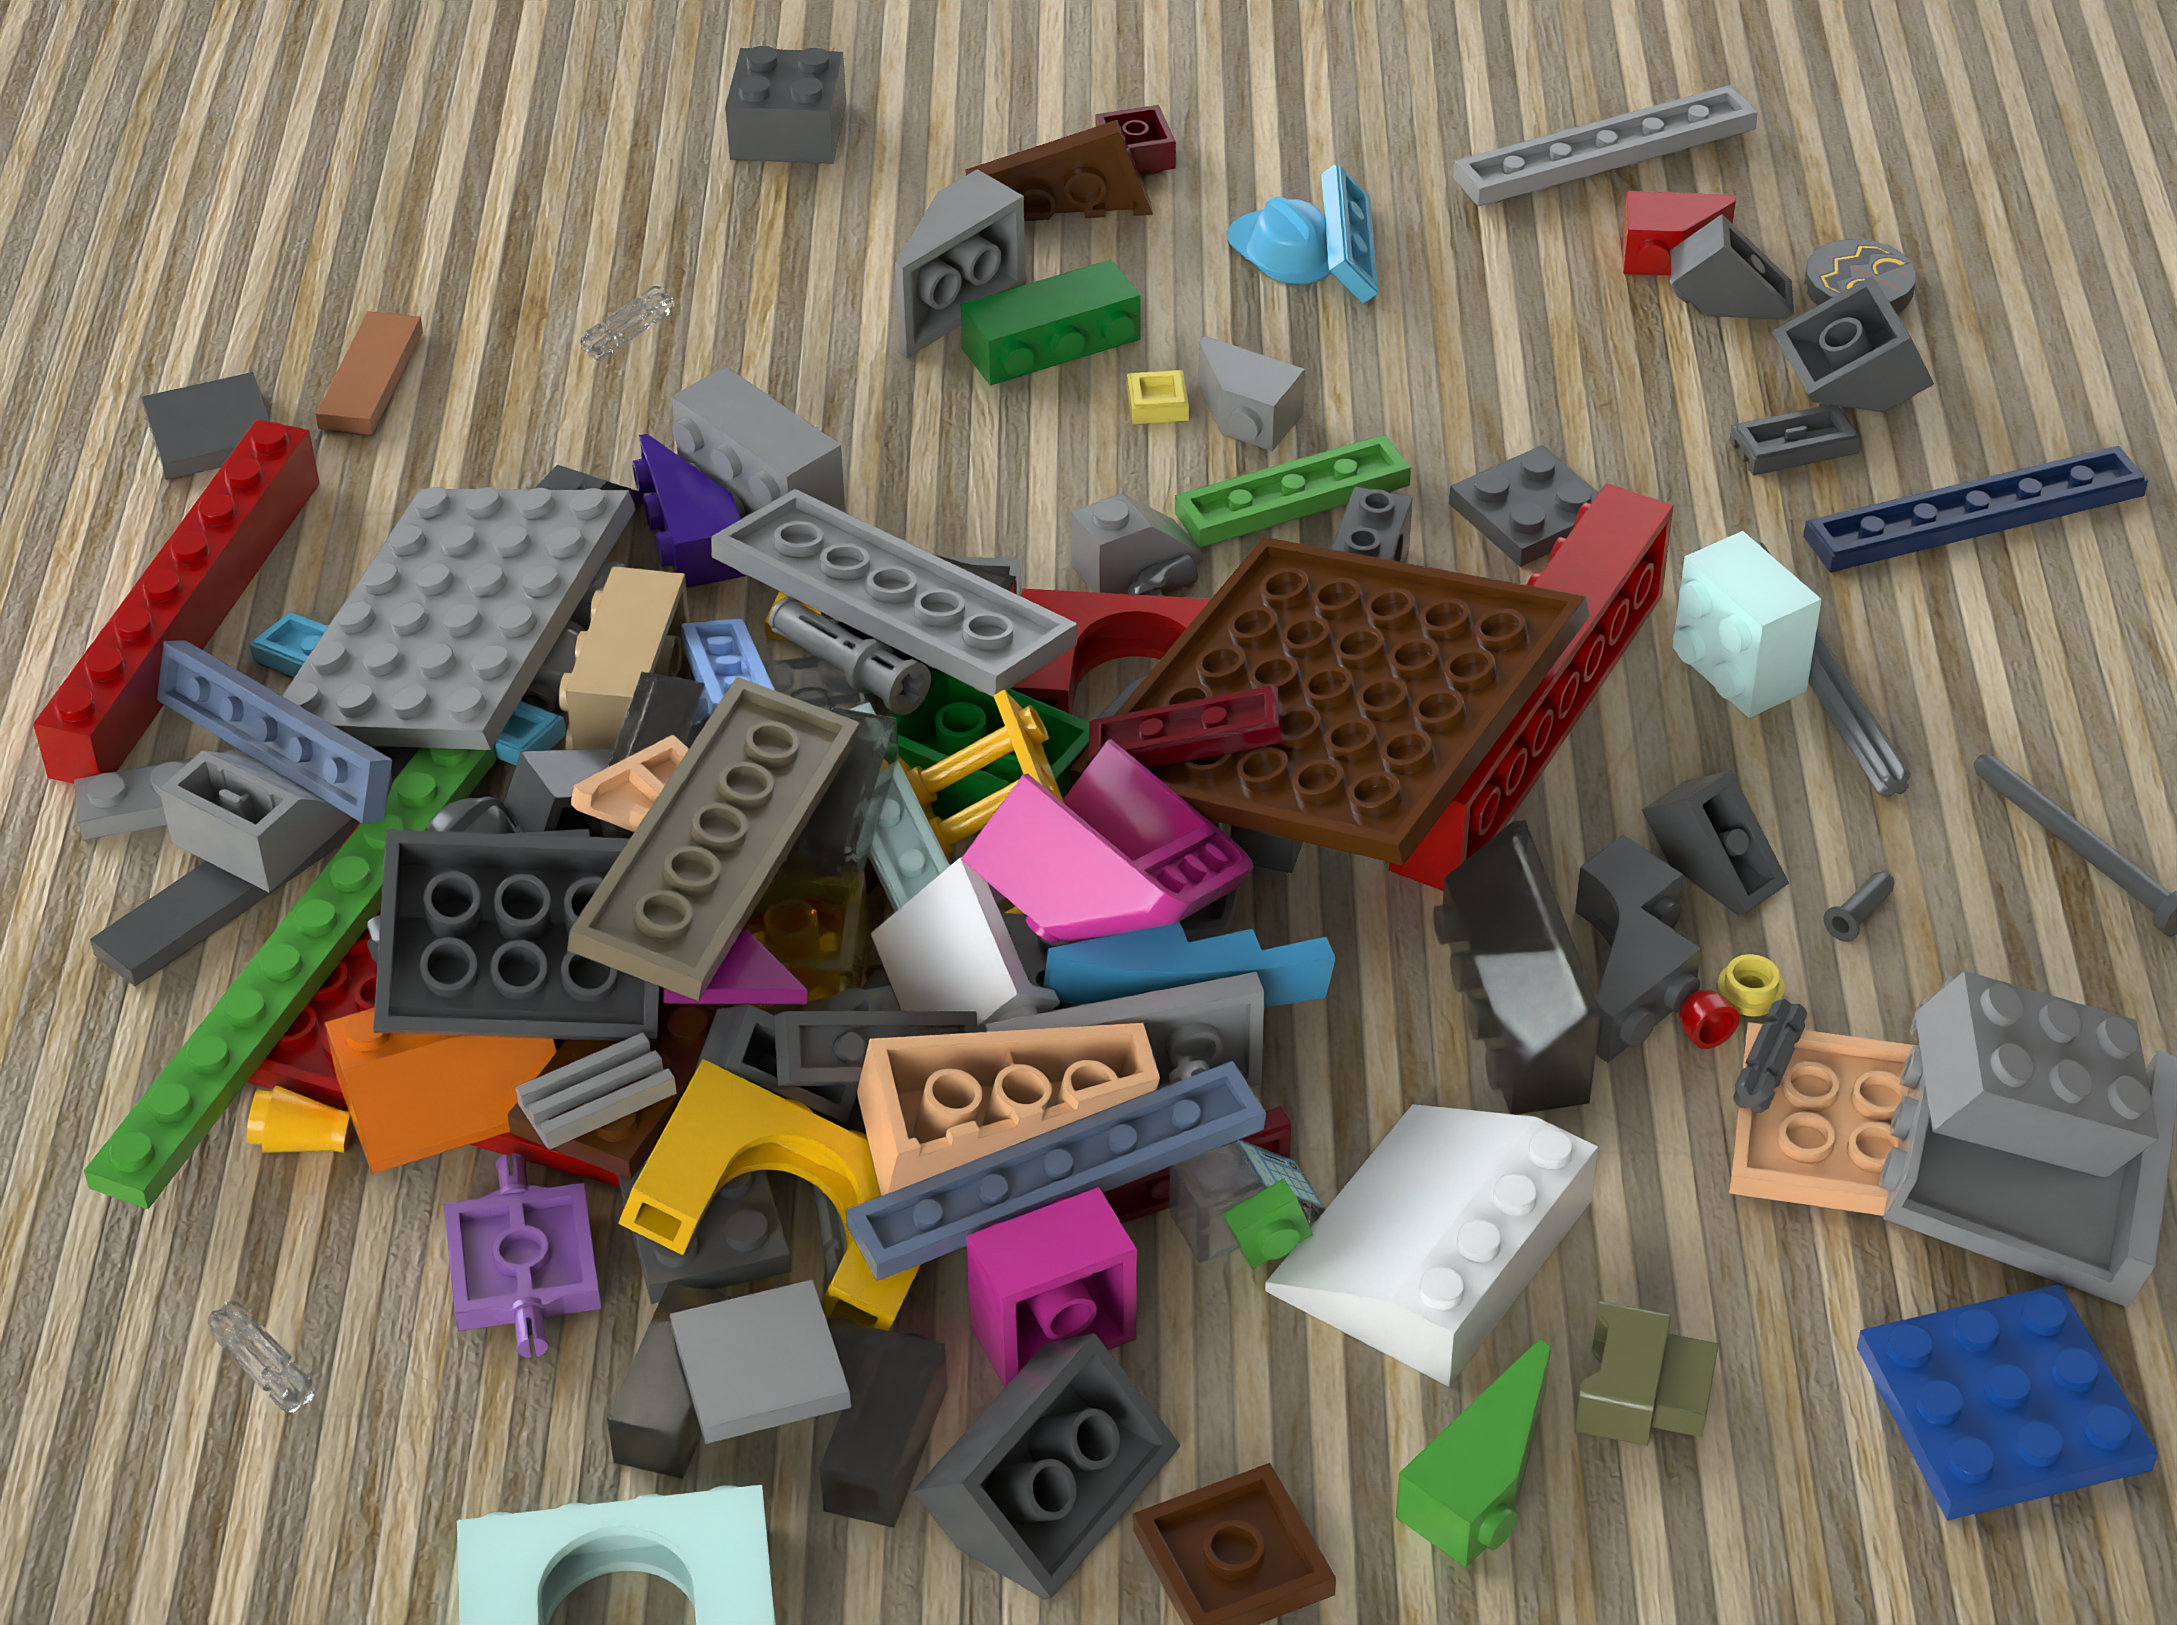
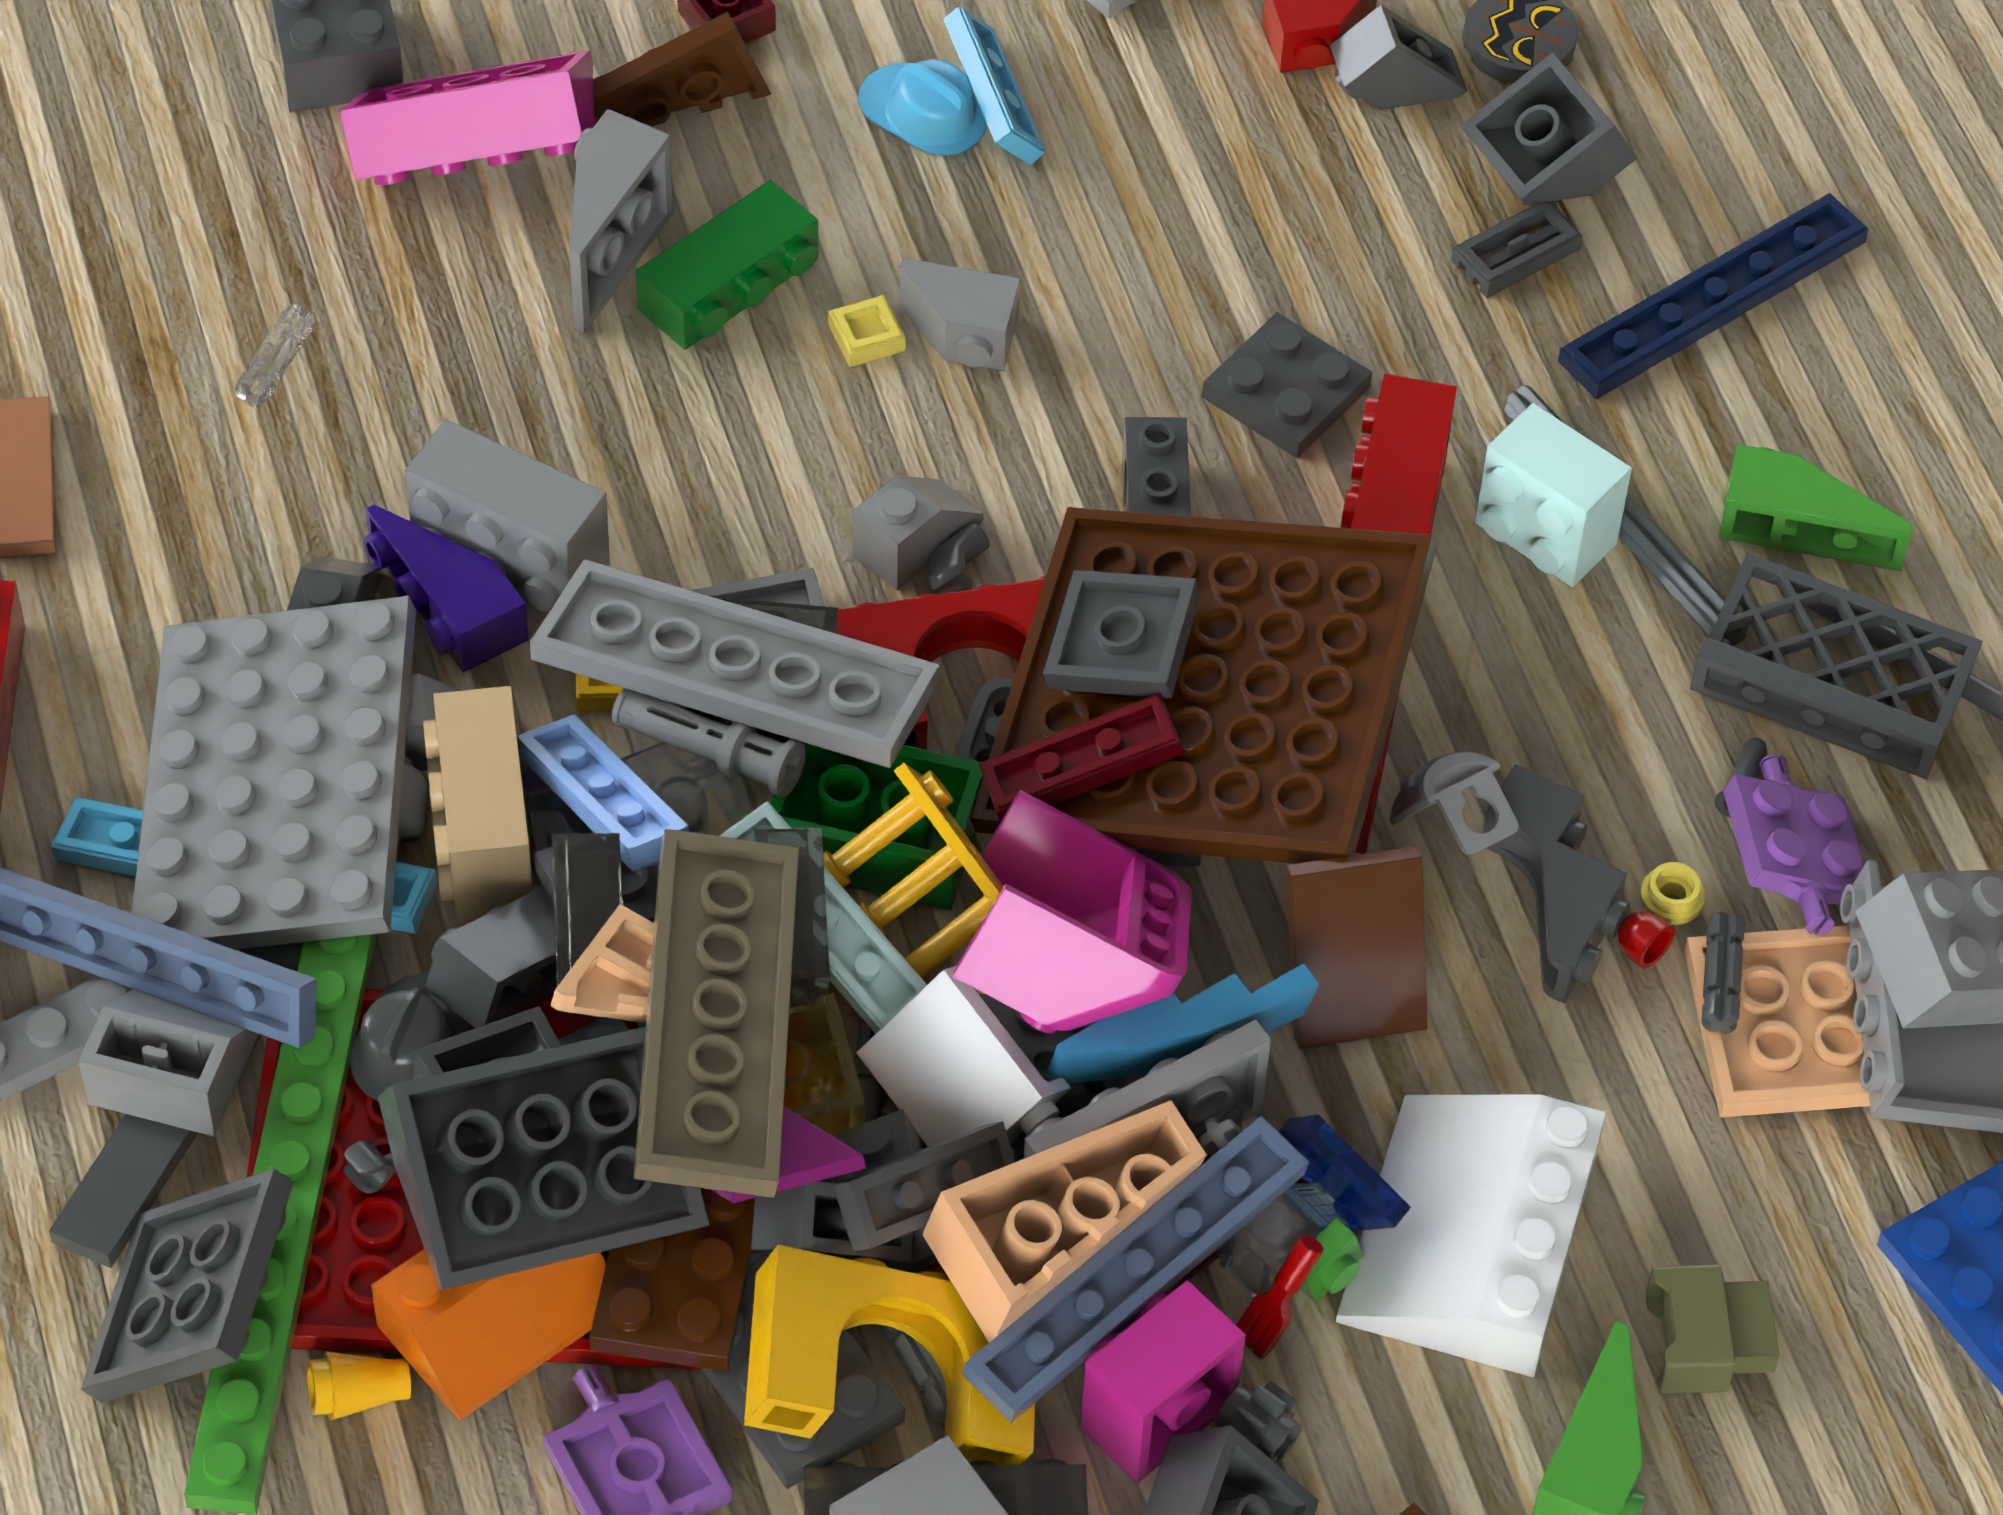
camera: 20 degrees left, 10 degrees up
(165, 1006) = (188, 1286): none -> dark grey plate
(590, 1083) = (656, 1279): light grey tile -> none
(862, 170) = (470, 118): none -> slope
(1145, 1350) = (1262, 1418): none -> dark grey gear
(1194, 1259) = (1270, 1311): none -> red piece
(1262, 633) = (1122, 633): none -> dark grey plate
(1290, 490) = (1048, 421): bright green plate -> none
(1319, 1164) = (1358, 1190): none -> clear blue plate
(1398, 948) = (1363, 941): none -> reddish brown tile
(1520, 975) = (1482, 945): clear smoke slope -> none
(1563, 838) = (1441, 784): none -> light grey piece
(1717, 841) = (1594, 742): dark grey slope -> none
(1885, 957) = (1794, 840): none -> medium lavender plate
(1960, 851) = (1820, 700): none -> dark grey fence
(2004, 691) = (1799, 508): none -> bright green slope

